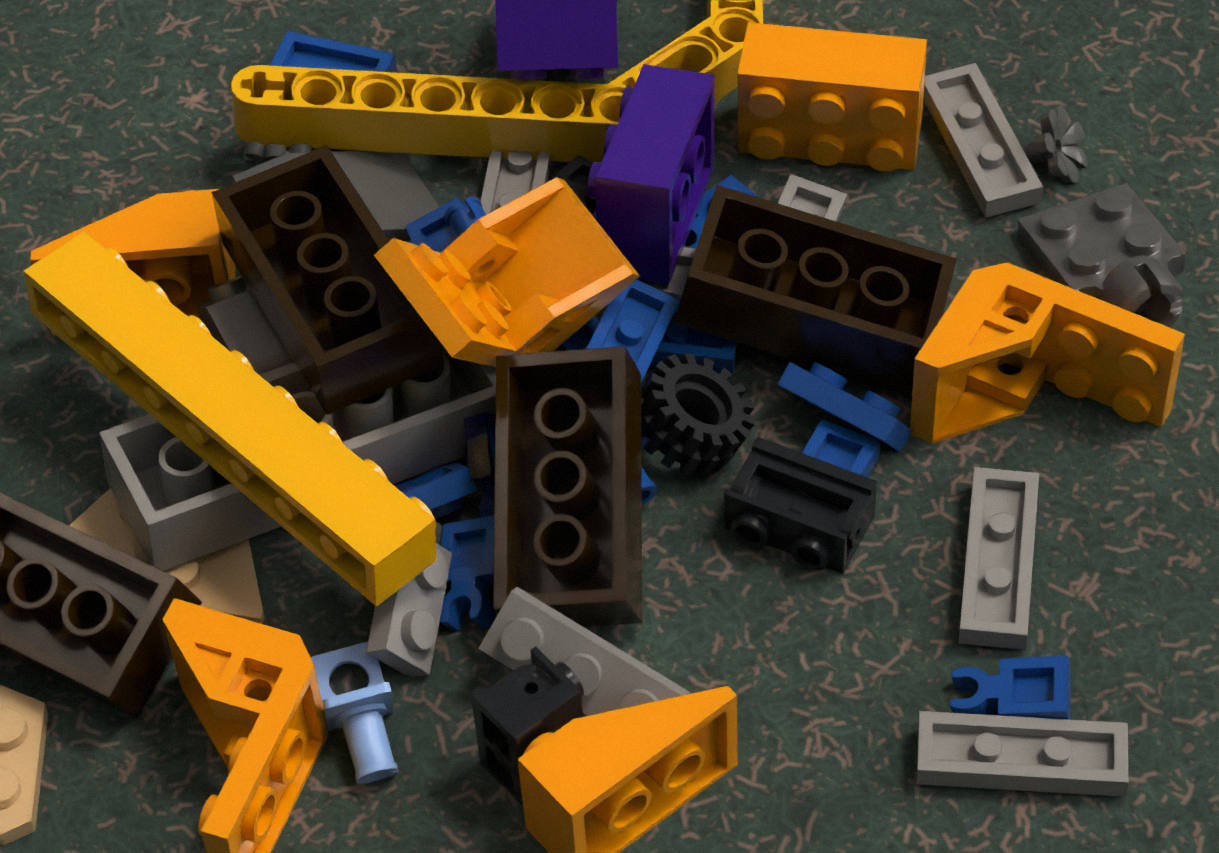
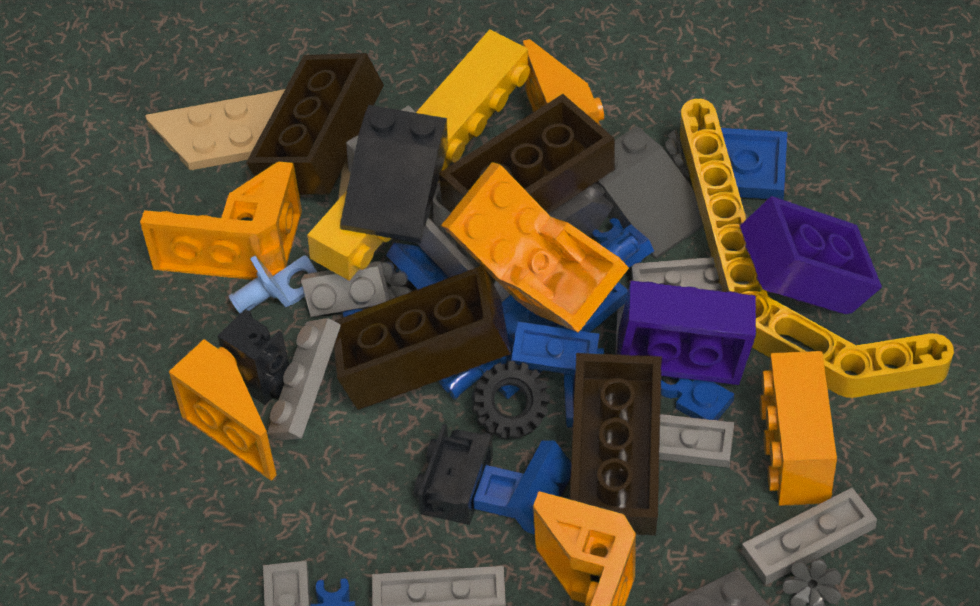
camera: 80 degrees right, 0 degrees up
(305, 416) = (394, 173): none -> black slope

